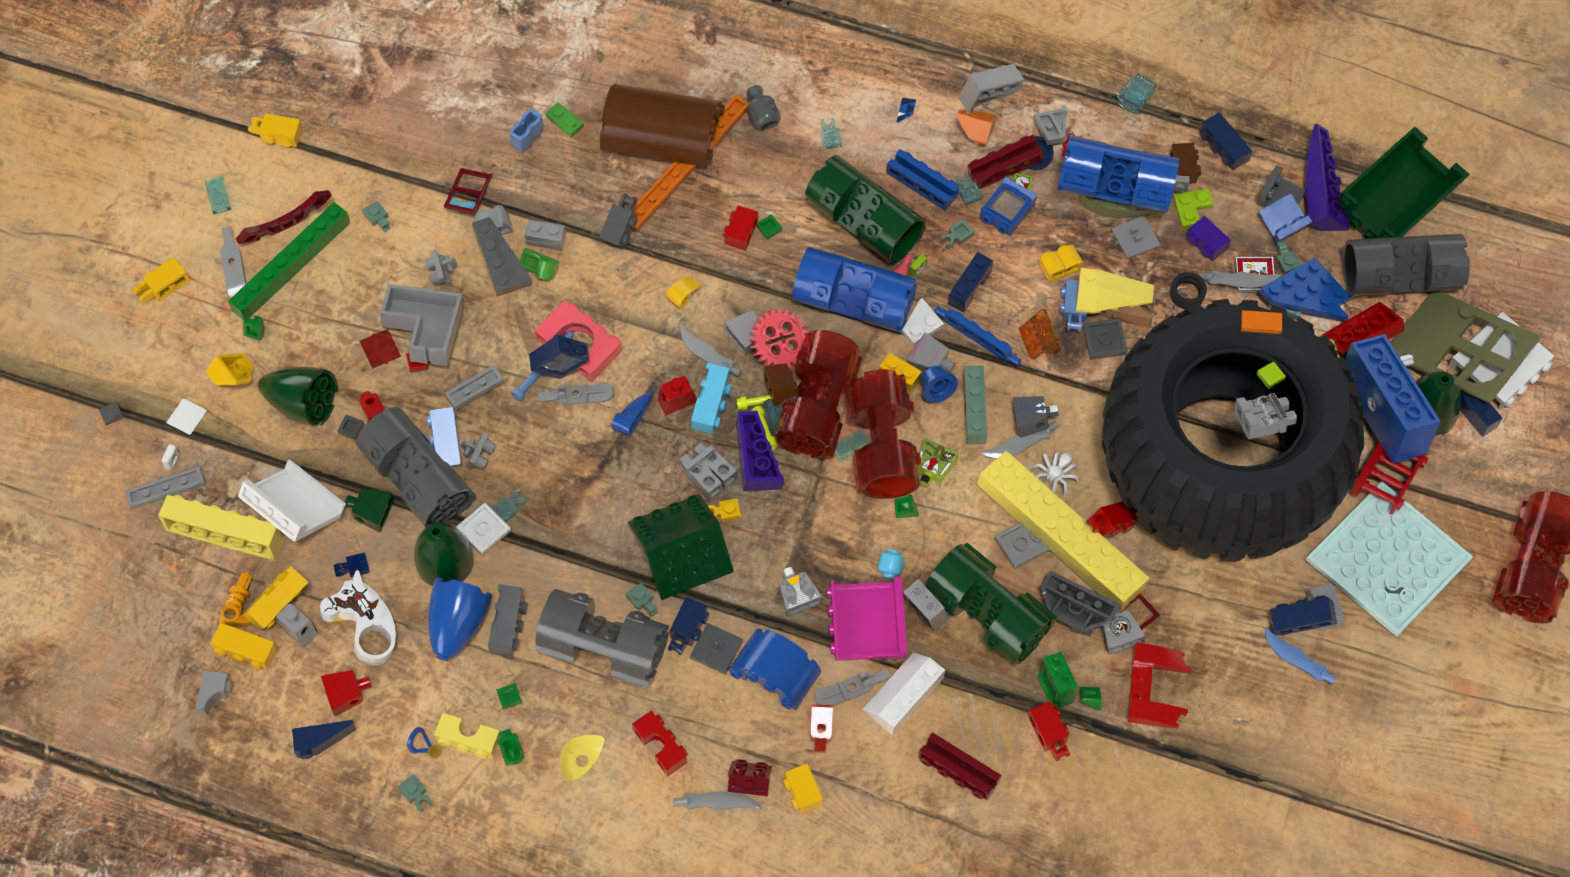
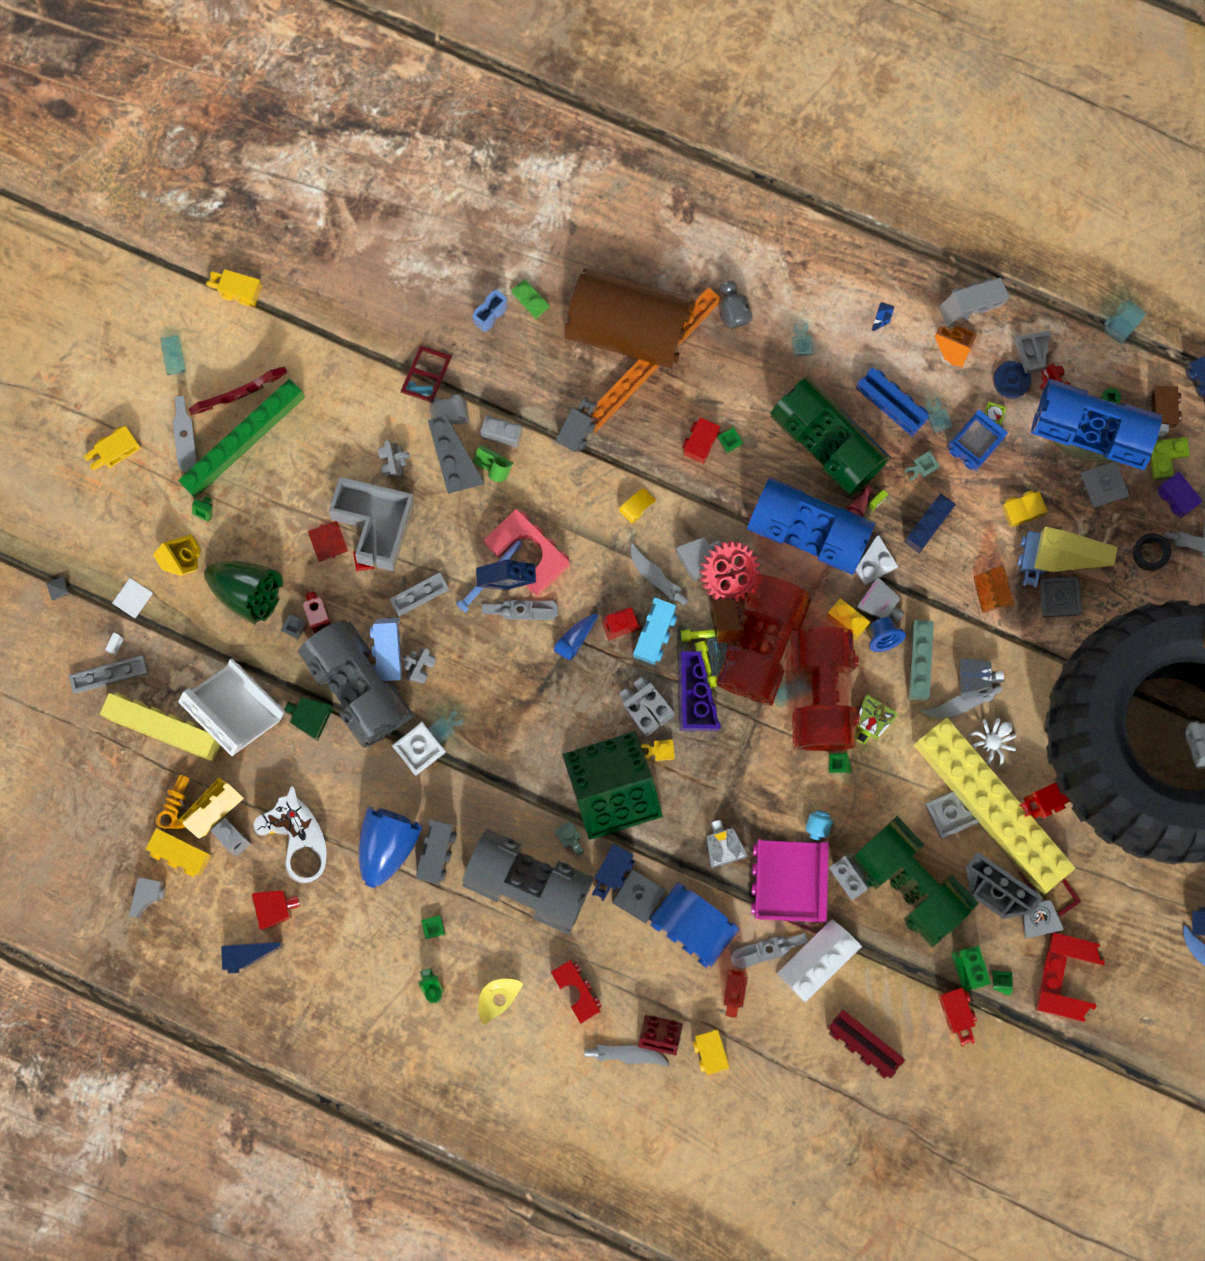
camera: 10 degrees right, 15 degrees up
(353, 563) = (291, 776): clear blue plate -> none
(377, 215) = (332, 392): sand green plate -> none
(413, 791) = (334, 1016): sand green plate -> none
(434, 750) = (356, 976): blue piece -> none
(442, 553) = (384, 783): dark green cylinder -> none
(483, 743) = (373, 961): light yellow arch -> none
(978, 335) = (926, 576): blue plate -> none
(1005, 161) = (979, 390): dark red brick -> none

